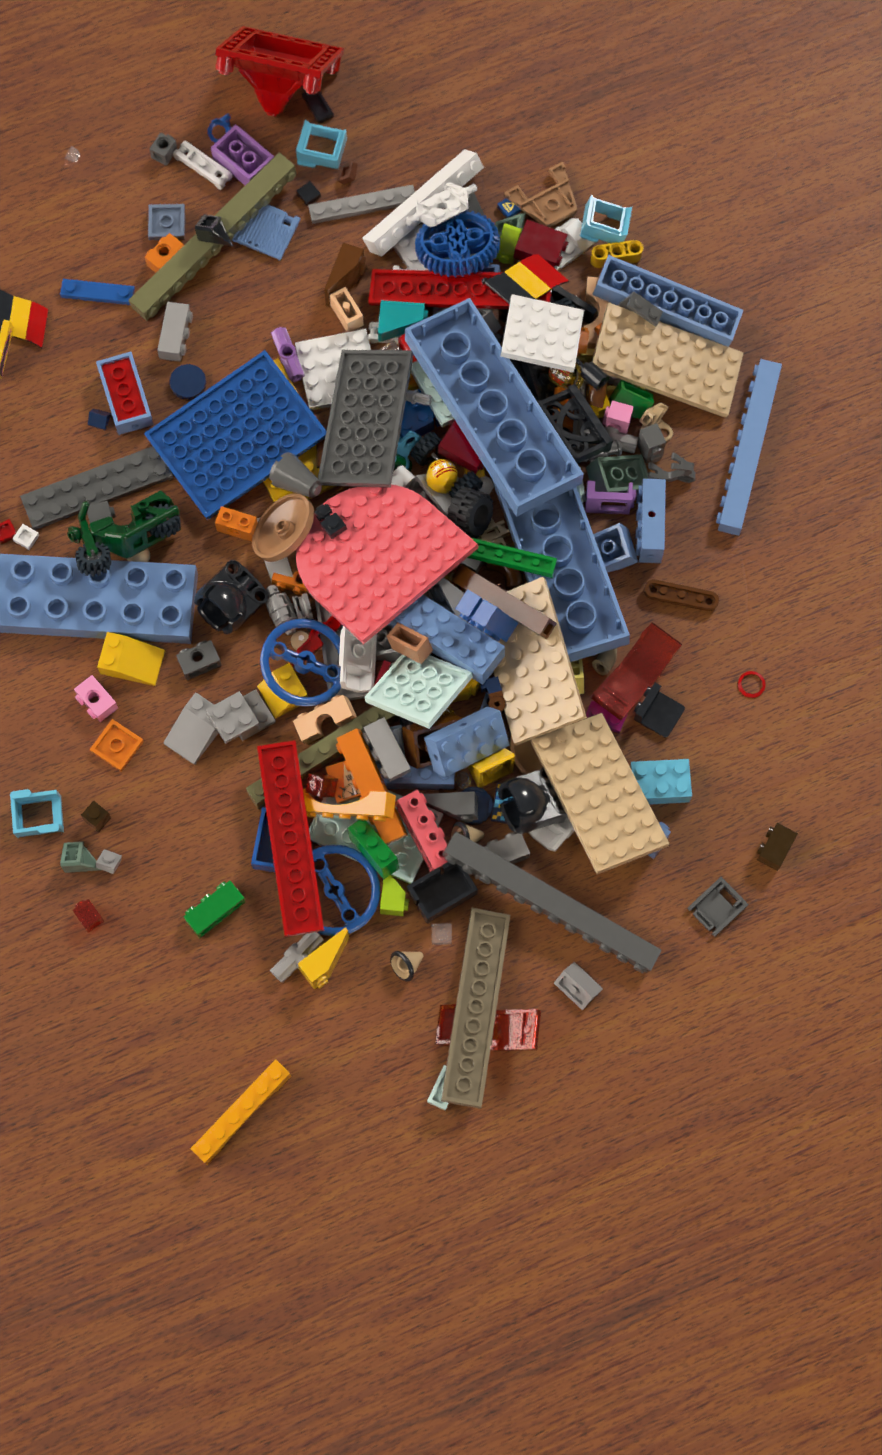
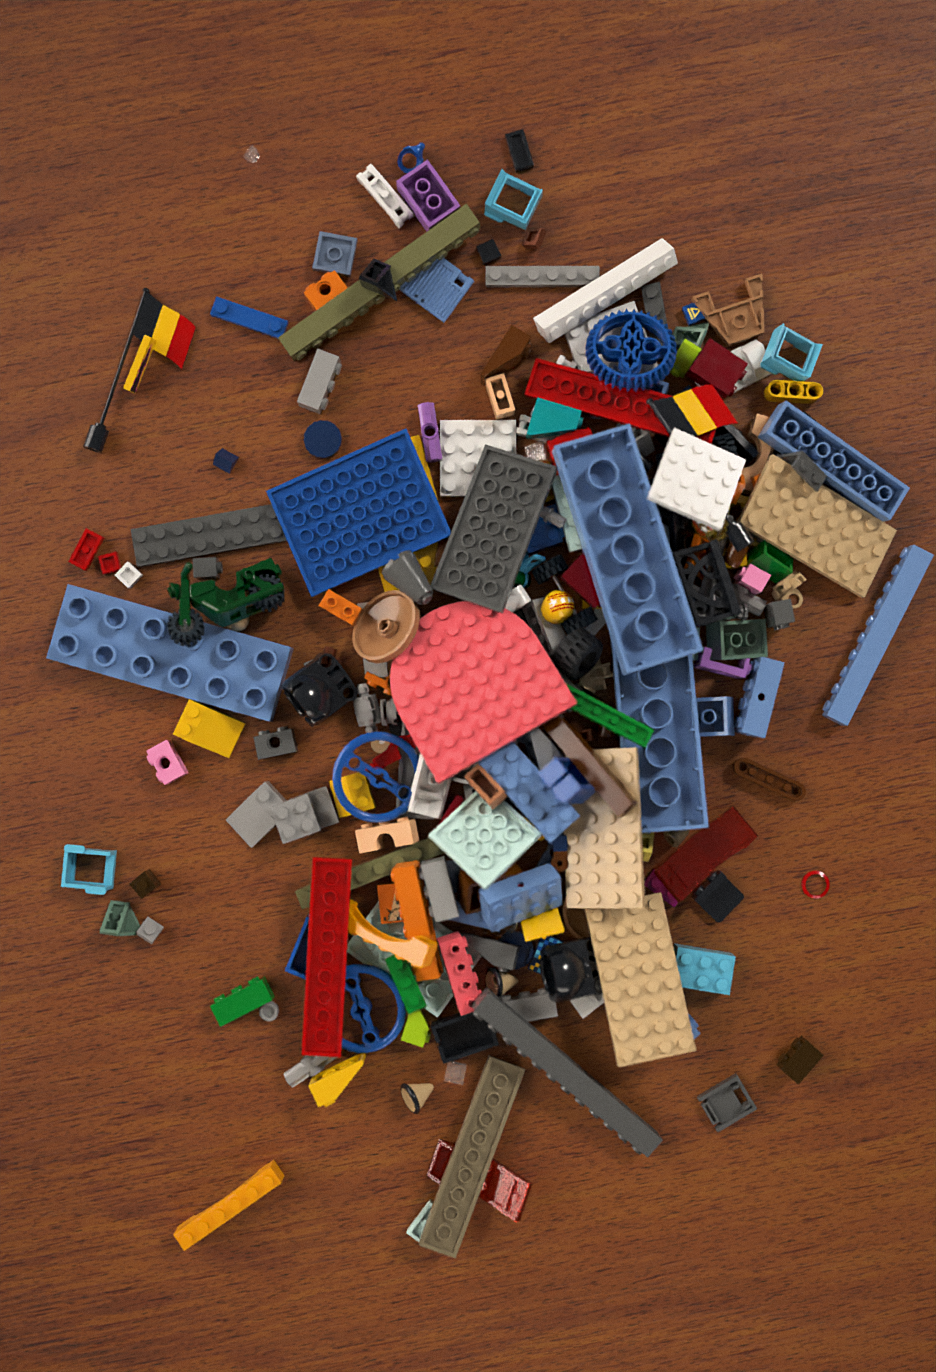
camera: 10 degrees right, 15 degrees up
(87, 915) = (119, 980): clear red brick -> none
(116, 745) = (179, 812): orange tile -> none
(124, 393) = (255, 440): red brick -> none
(163, 155) = (347, 176): dark grey brick -> none
(243, 915) = (269, 1011): none -> light grey tile
(277, 64) = (485, 97): red piece -> none
(321, 785) = (369, 906): clear red brick -> none
(331, 524) = (434, 641): black plate -> none
(453, 199) = (636, 296): white plate -> none
(578, 985) = (575, 1151): light grey panel -> none
(683, 471) = (806, 651): dark grey piece -> none

